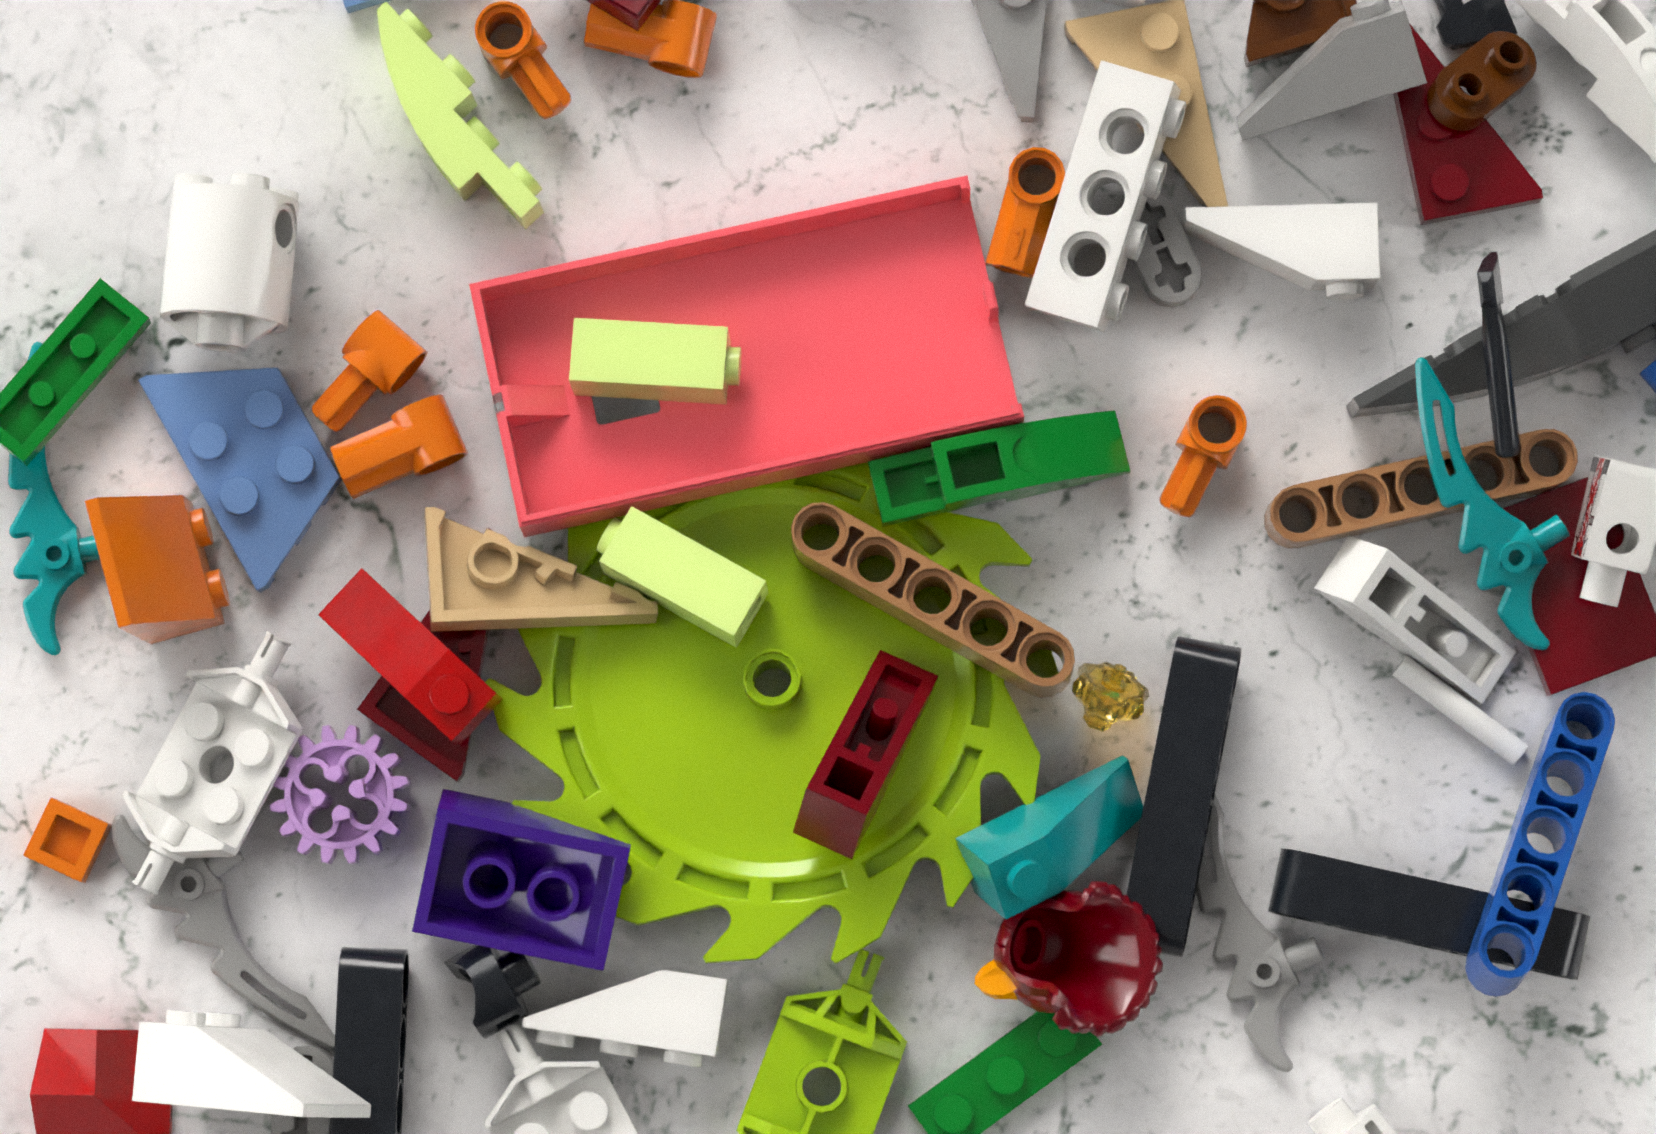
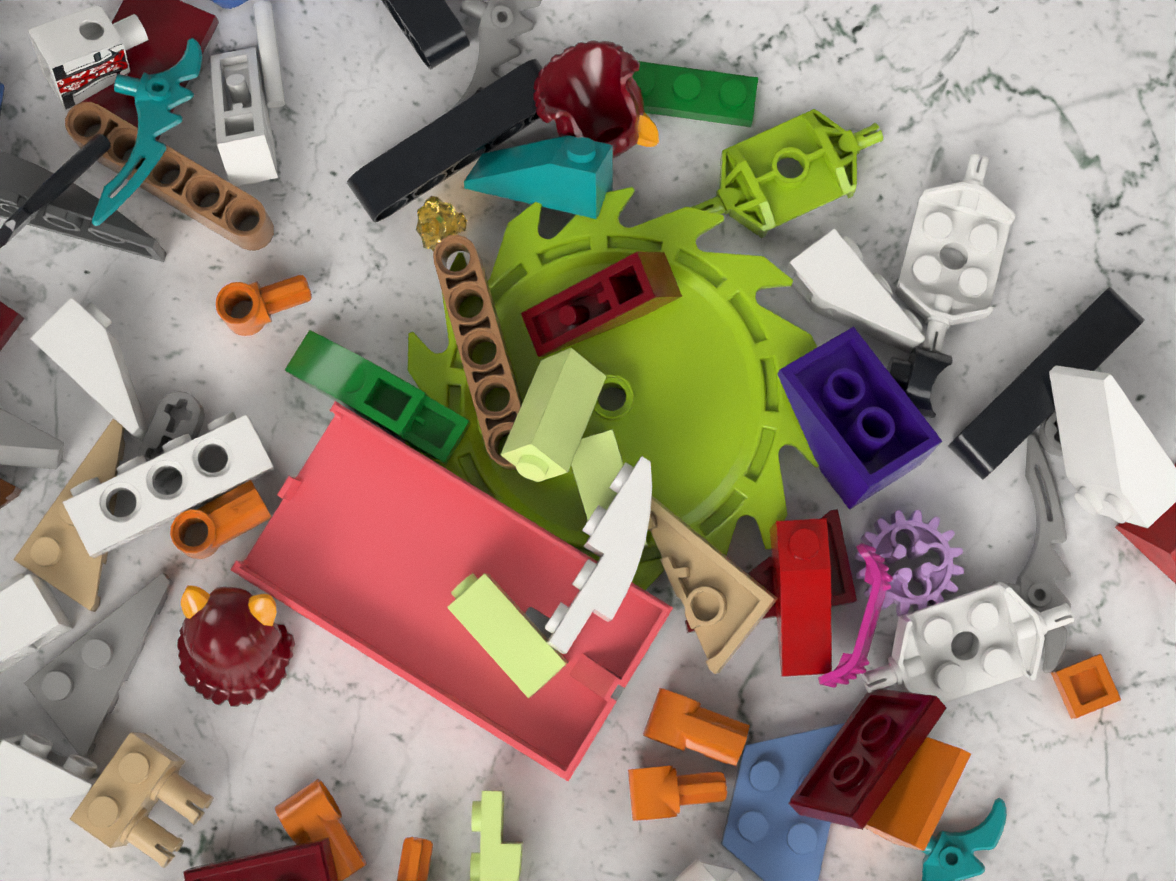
camera: 140 degrees left, 5 degrees down
(214, 559) = (867, 757): none -> dark red tile
(351, 735) = (854, 663): none -> dark pink piece
(623, 529) = (618, 540): none -> white slope
(799, 593) = (553, 416): none -> yellowish green brick
(897, 113) = (232, 645): none -> dark red hair

